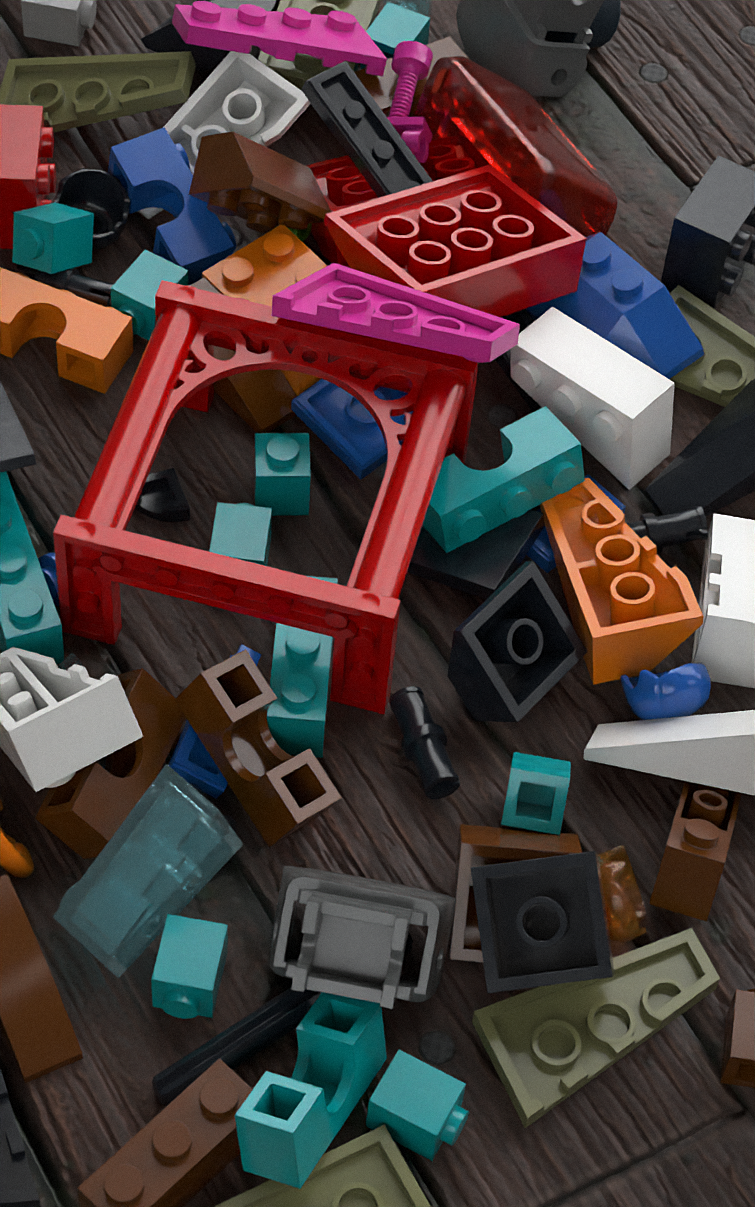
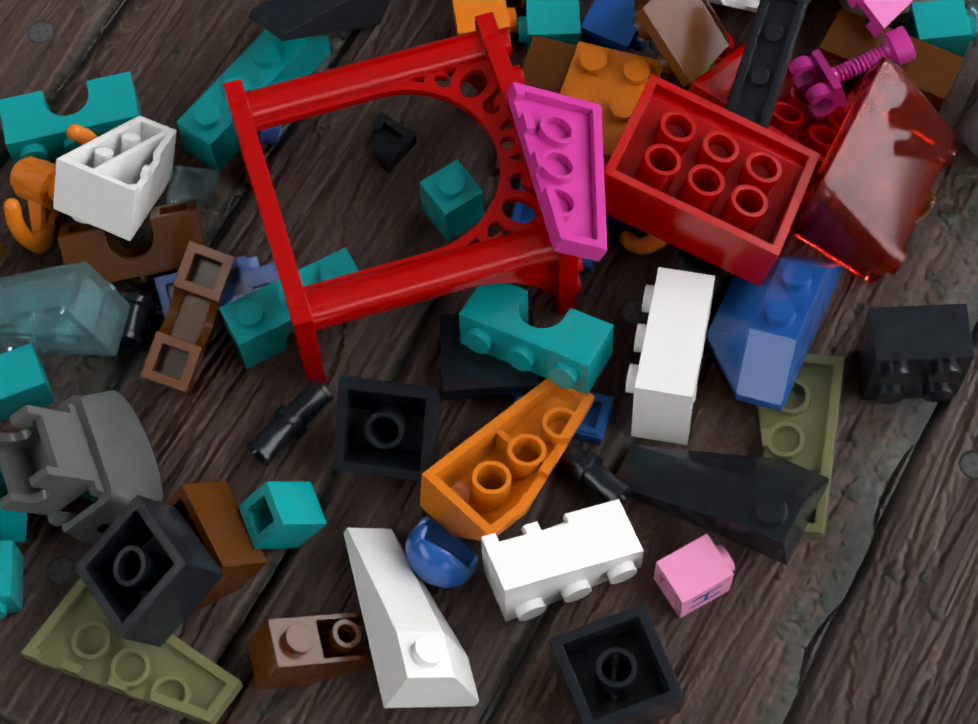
camera: 65 degrees right, 10 degrees up
(242, 532) = (373, 212): teal brick -> none
(621, 895) = (231, 613): clear orange hair -> none

